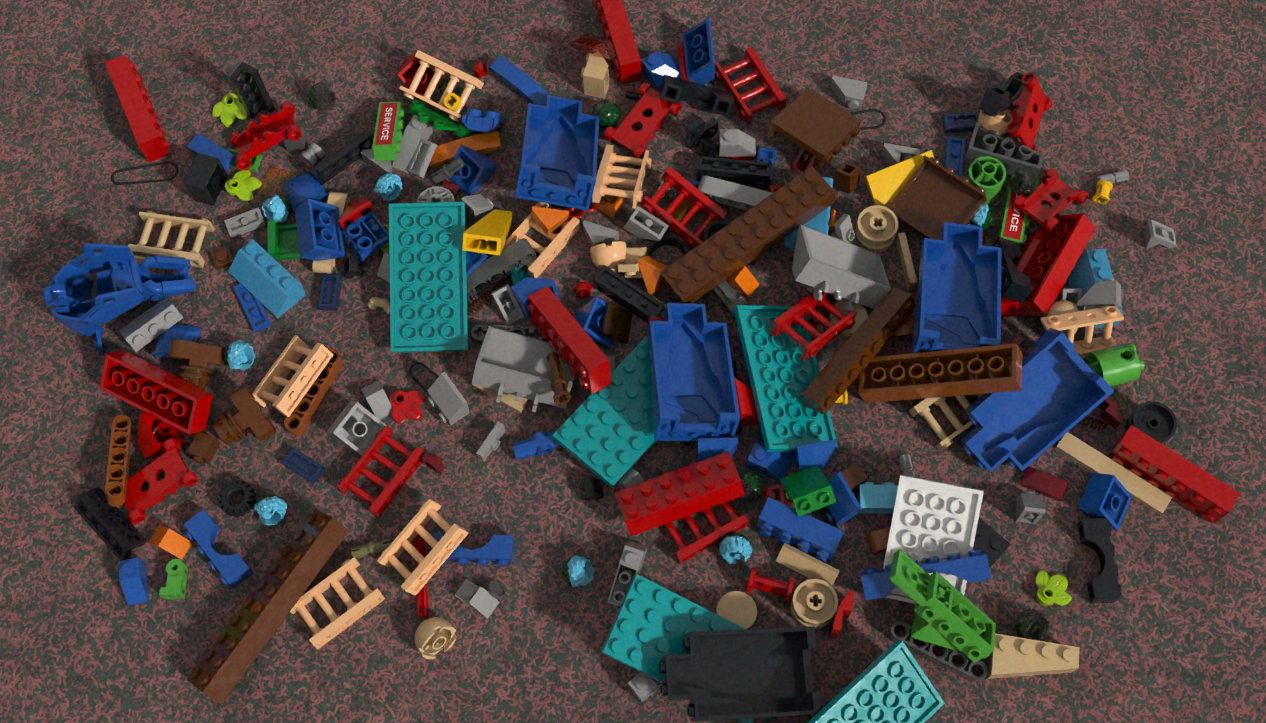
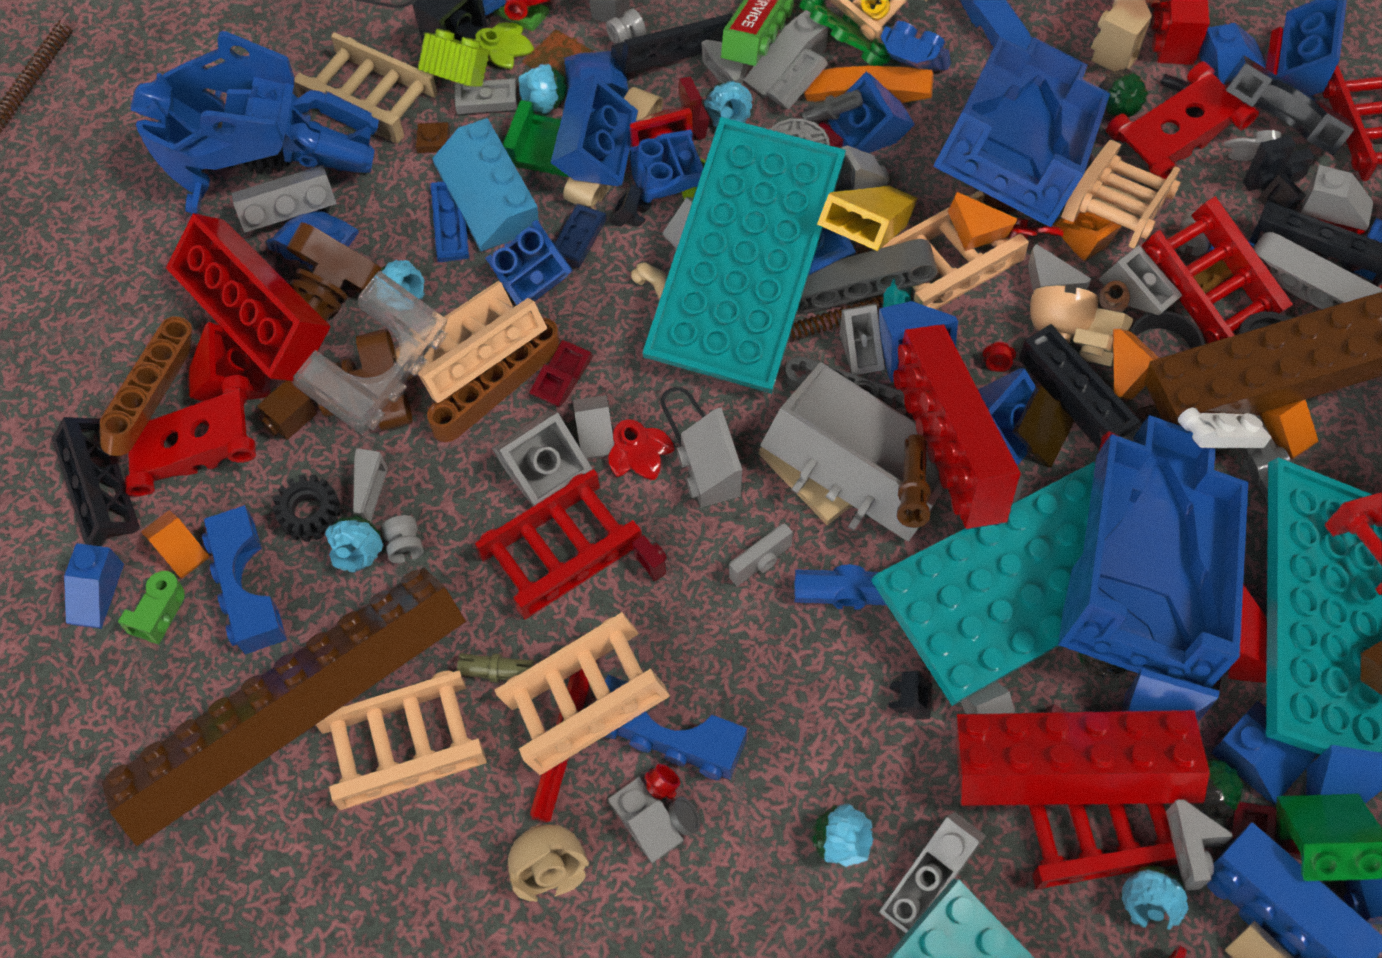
camera: 20 degrees right, 5 degrees down
(219, 208) = (453, 59): none -> lime brick
(262, 382) = (360, 399): none -> clear arch
(264, 469) = (368, 481): none -> light grey slope
(295, 496) = (401, 536): none -> light grey wheel
(303, 465) = (433, 491): dark blue plate -> none
(309, 319) = (529, 264): none -> blue slope
(349, 377) = (562, 374): none -> dark red slope
(369, 194) = (691, 98): none -> dark red slope
(479, 576) = (662, 782): none -> red plate
(635, 236) = (1108, 303): none -> reddish brown pin
(678, 128) = (1246, 148): none -> light grey plate
(707, 297) = (1224, 429): none -> white plate
(742, 511) = (1190, 835): none -> light grey slope

